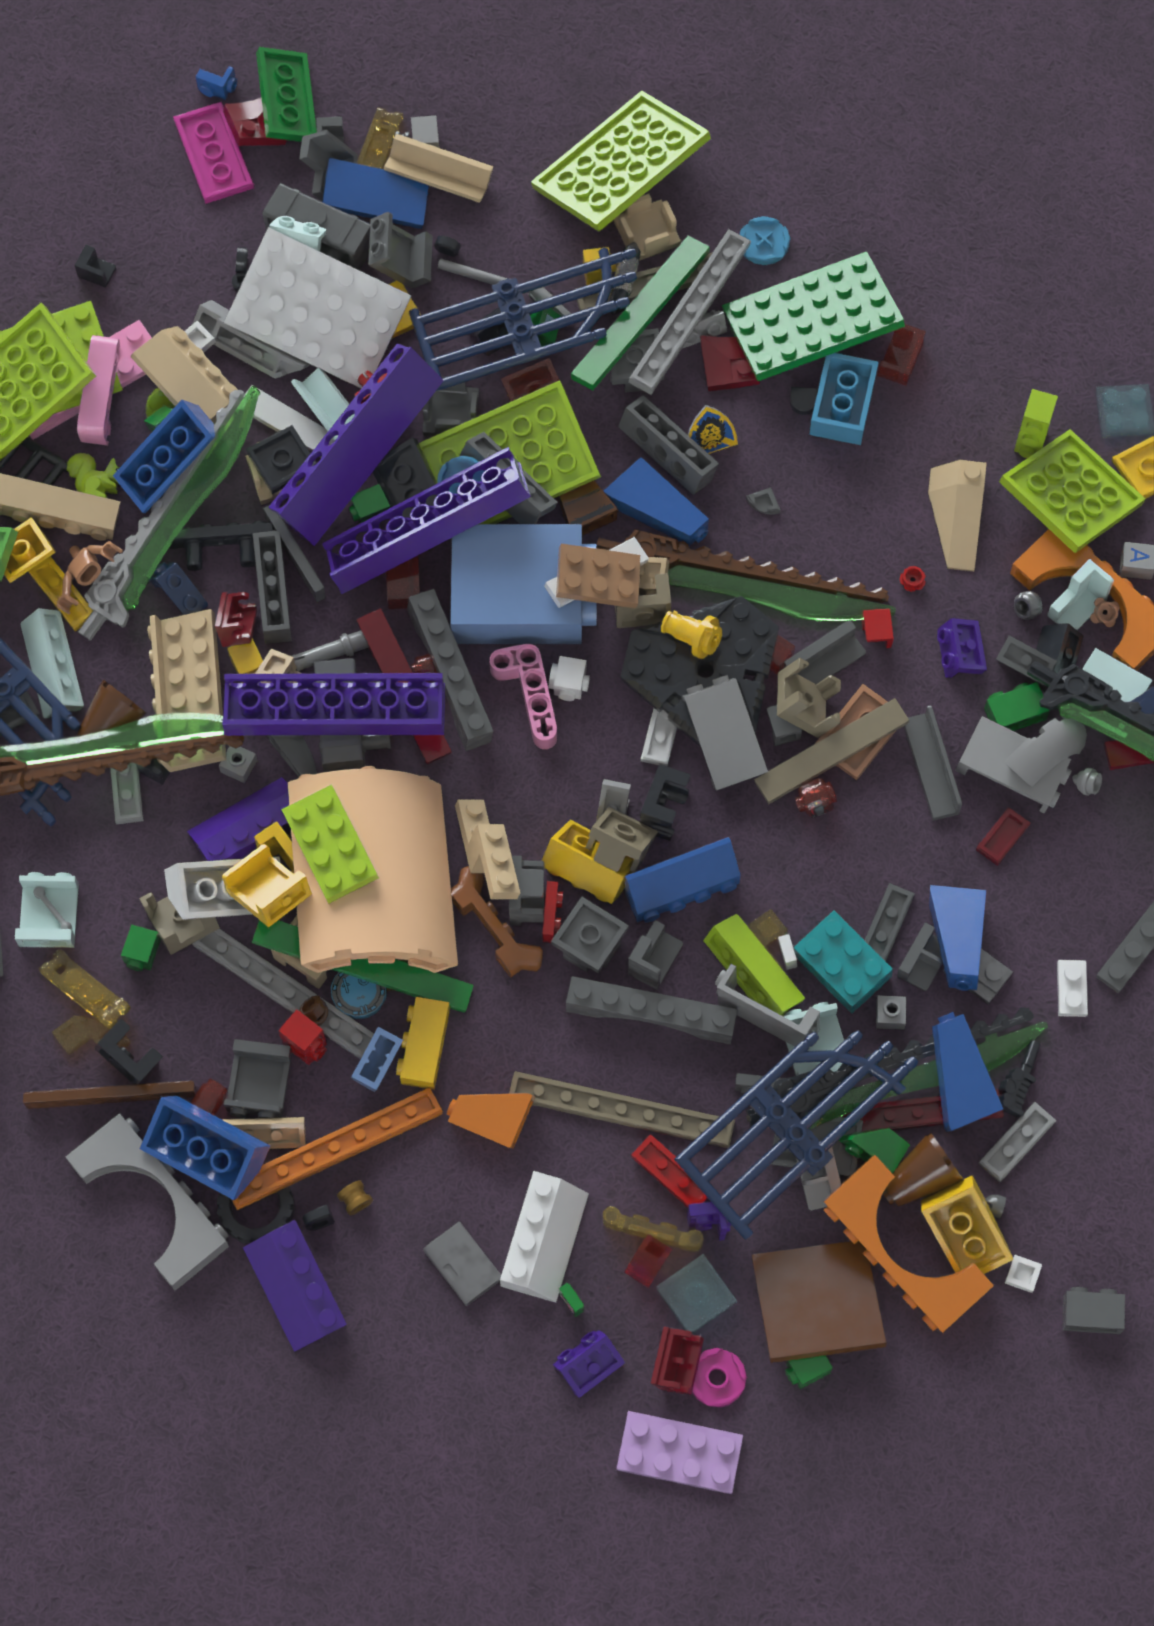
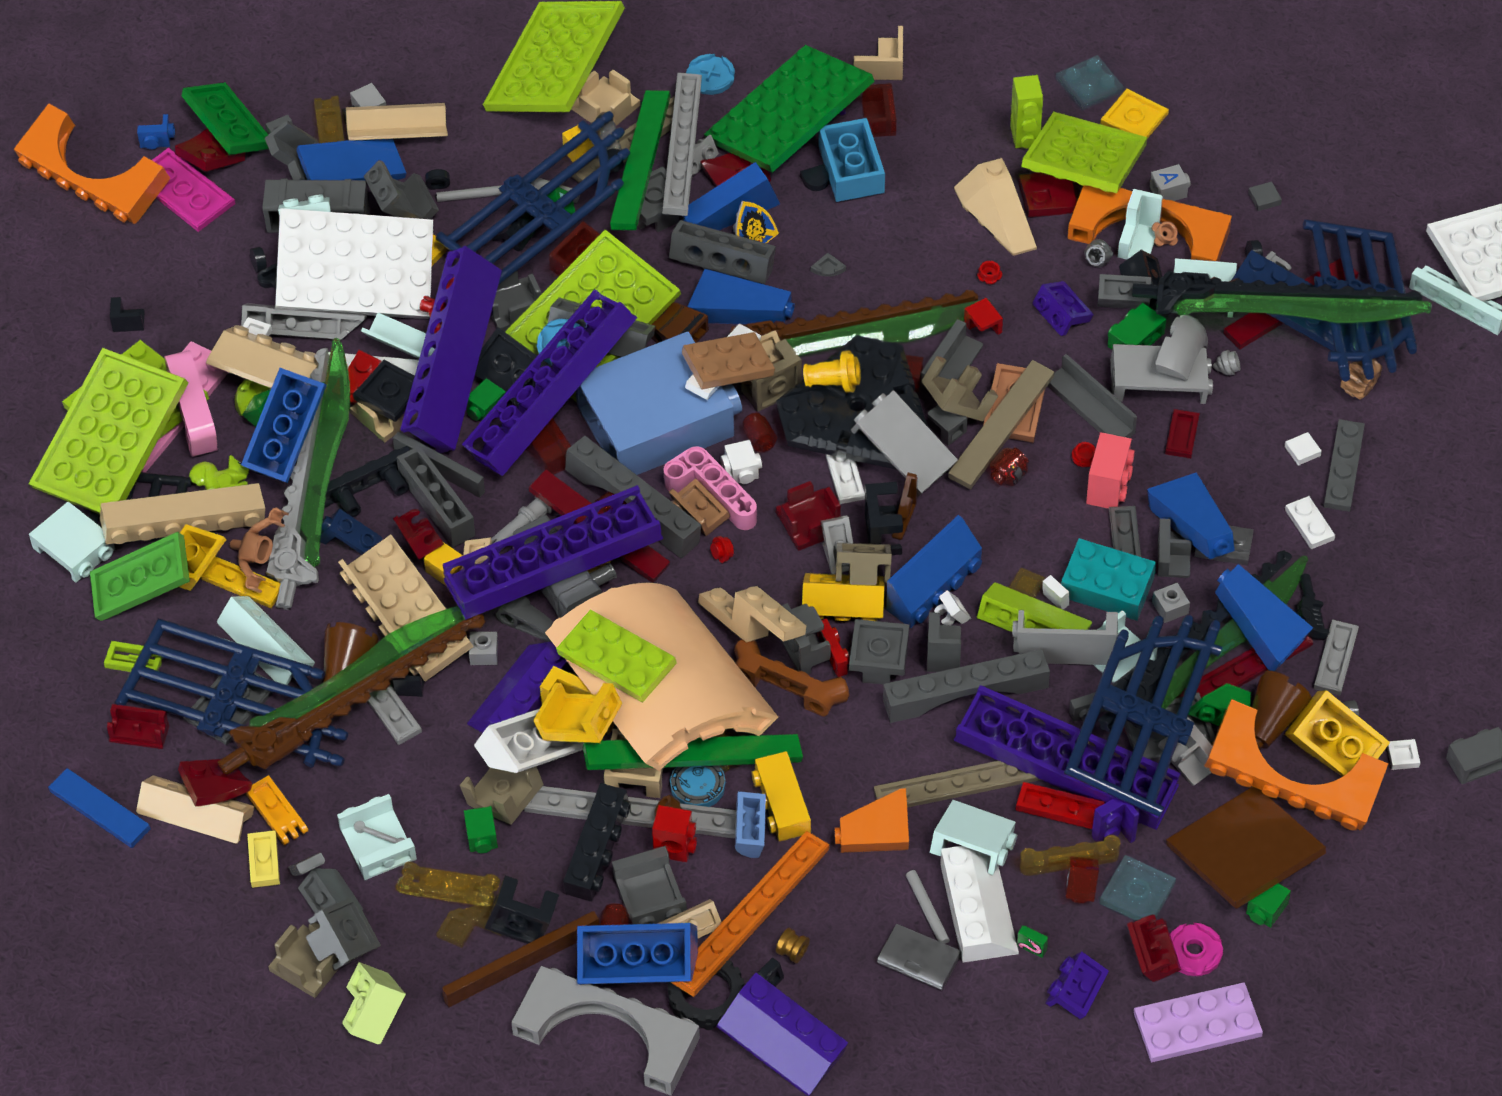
camera: 25 degrees left, 15 degrees down
(107, 57) = (123, 194): none -> orange arch
(232, 1012) = (596, 842): none -> black brick
(268, 424) = (359, 371): none -> red plate
(498, 1217) = (927, 907): none -> light grey bar
(504, 760) = (722, 549): none -> red plate
(506, 707) = (700, 505): none -> medium nougat bracket
(575, 1168) = (977, 831): none -> light aqua panel
(601, 759) = (805, 511): none -> dark red panel
(603, 653) = (759, 432): none -> clear red brick
(685, 923) = (954, 609): none -> white tile
(686, 1110) = (1046, 750): none -> dark purple tile
(698, 795) = (907, 503): none -> reddish brown tile
(723, 390) = (719, 206): none -> blue slope
(896, 817) = (1083, 454): none -> red plate
(904, 850) = (1110, 471): none -> coral brick
(936, 304) = (888, 63): none -> tan panel
(1012, 520) = (1046, 194): none -> dark red plate
(1109, 906) = (1302, 448): none -> white tile

